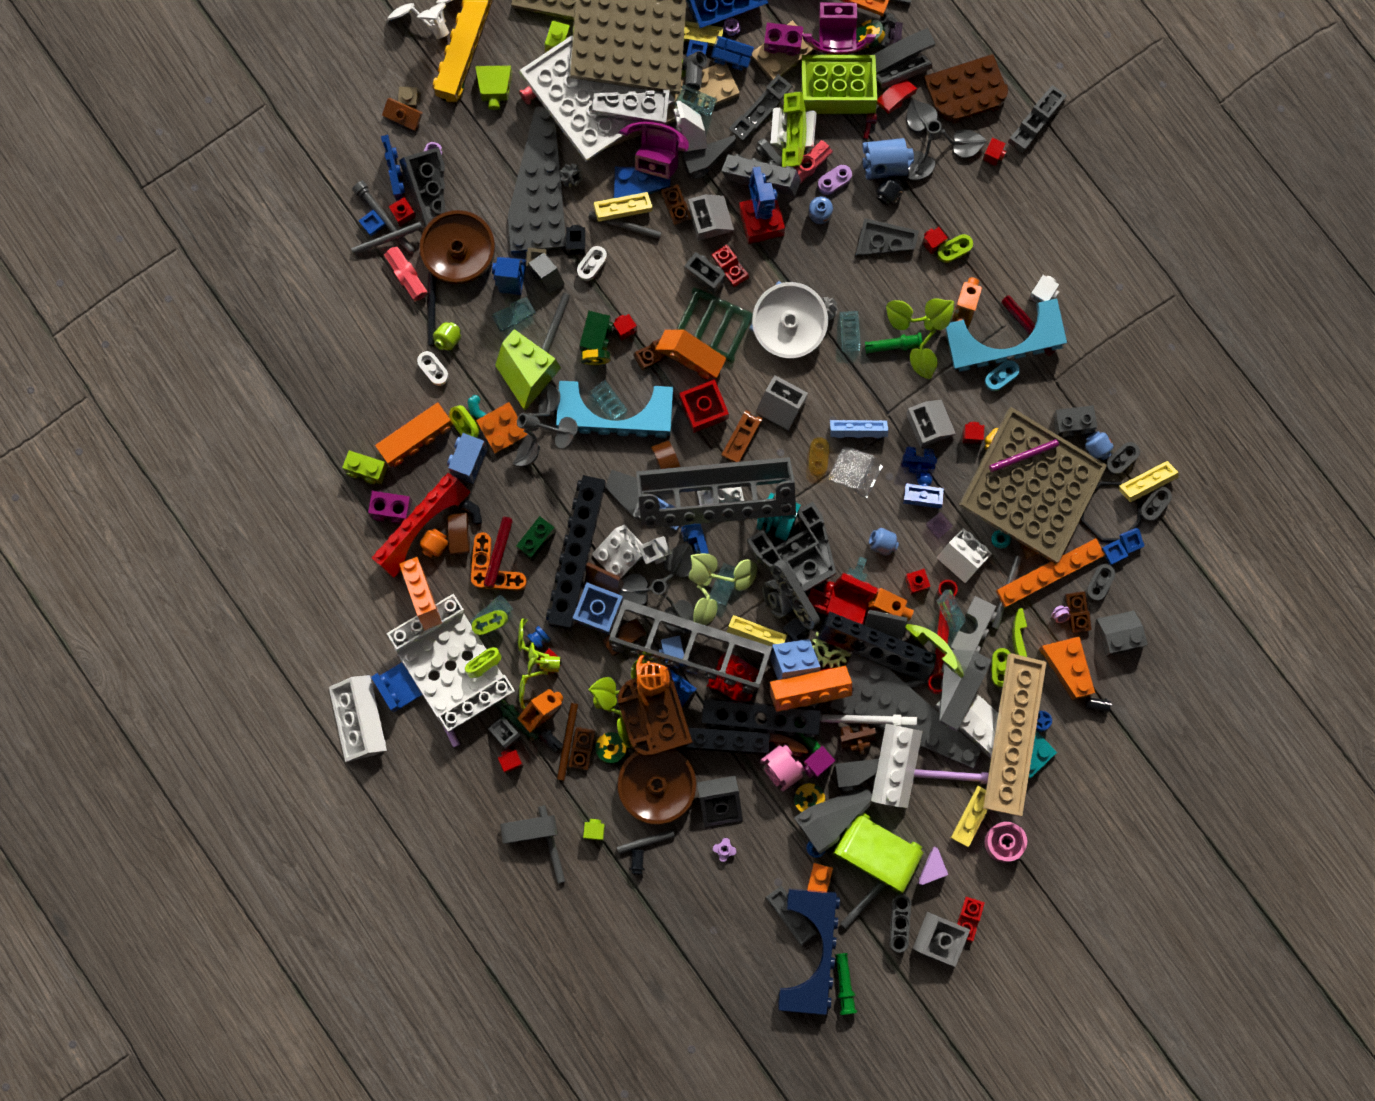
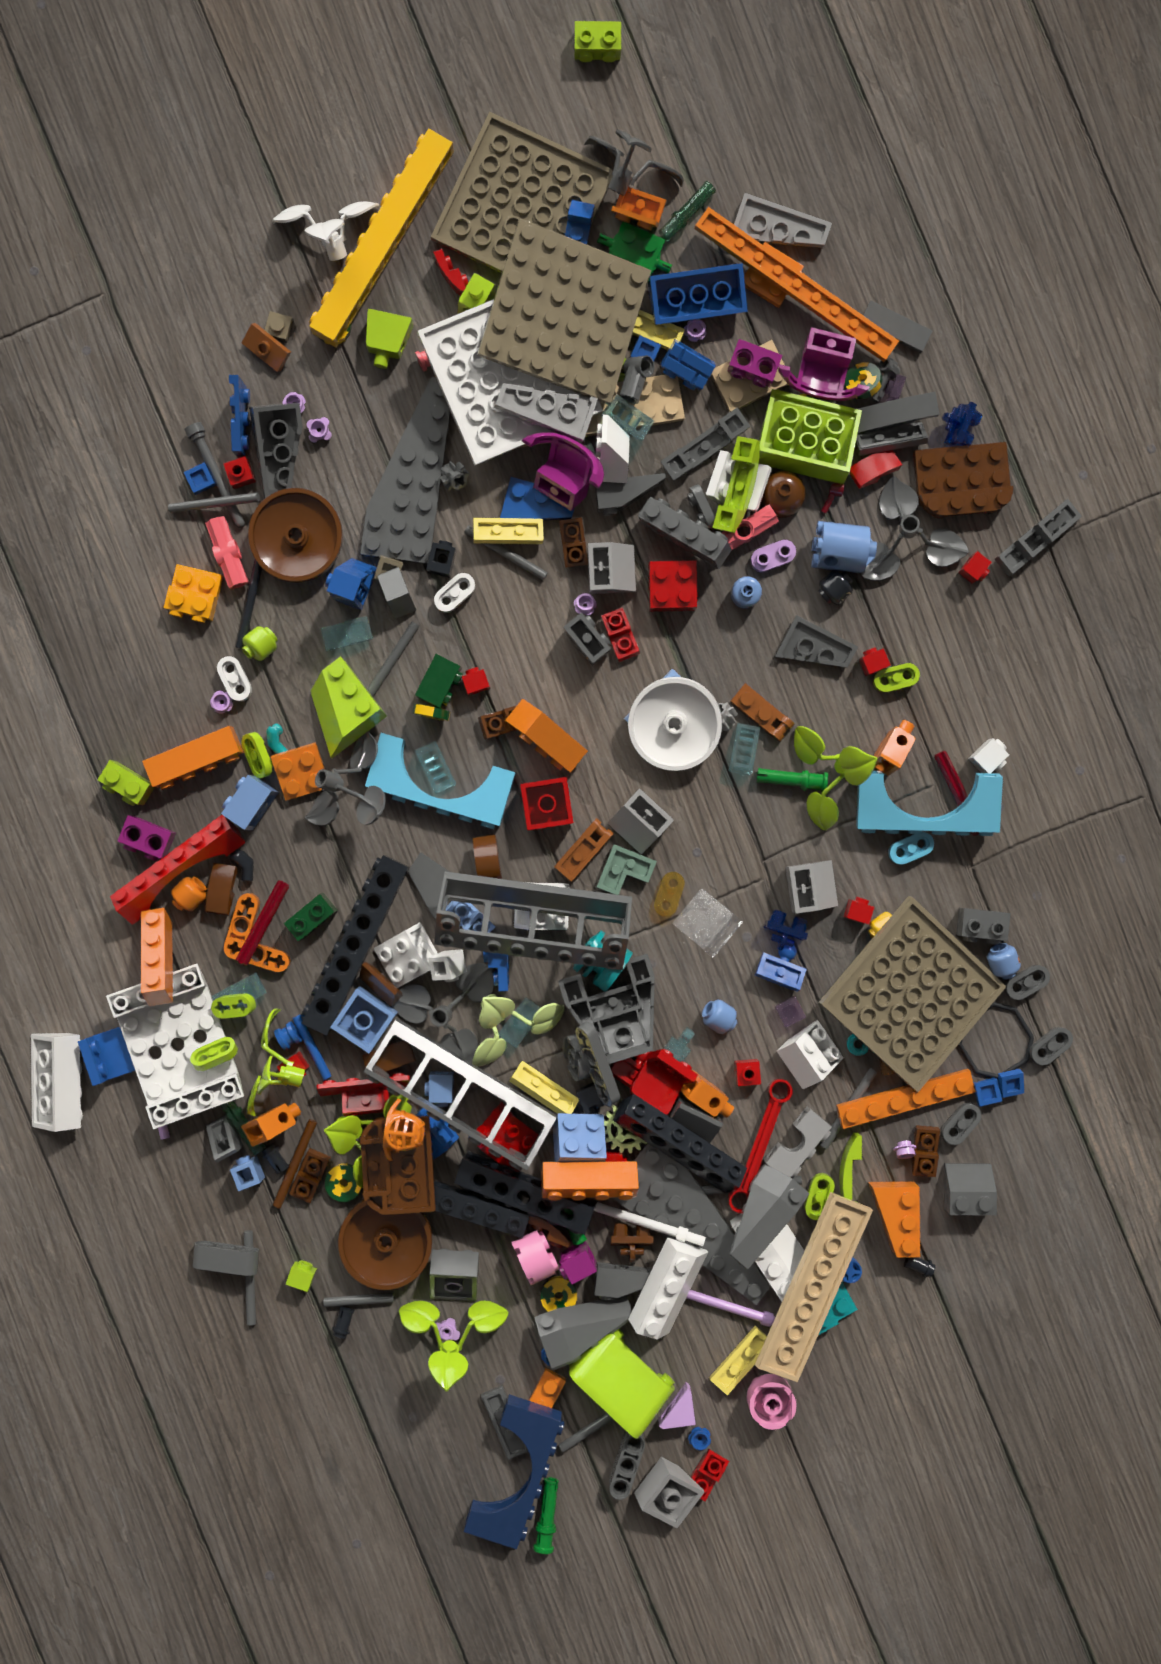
camera: 15 degrees right, 10 degrees up
(386, 311) = (193, 593): none -> light orange plate
(426, 384) = (215, 702): none -> lavender plate
(456, 161) = (321, 423): none -> lavender plate
(510, 760) = (220, 1173): red plate -> none
(530, 754) = (247, 1172): none -> medium blue brick
(535, 30) = (453, 278): none -> red slope
(559, 643) = (312, 1048): none -> blue bar
(615, 666) = (361, 1095): none -> red bracket
(696, 246) = (585, 599): none -> lavender plate
(730, 864) = (448, 1364): none -> lime plant
(731, 308) = (590, 674): clear green bar -> none
(762, 194) = (678, 565): blue plate -> none
(777, 439) = (623, 863): none -> sand green plate
(832, 130) = (783, 493): none -> reddish brown cylinder
(856, 299) = (761, 712): none -> dark orange plate
(858, 428) = (724, 873): light blue plate -> none
(924, 635) = (762, 1186): lime slope -> none
(950, 890) = (699, 1444): none -> blue plate
(951, 610) = (777, 1119): clear light blue plate -> none
(952, 46) = (958, 423): none -> clear blue hips
(1024, 455) = (912, 959): magenta bar -> none
(1149, 481) = (1050, 1018): light yellow plate -> none

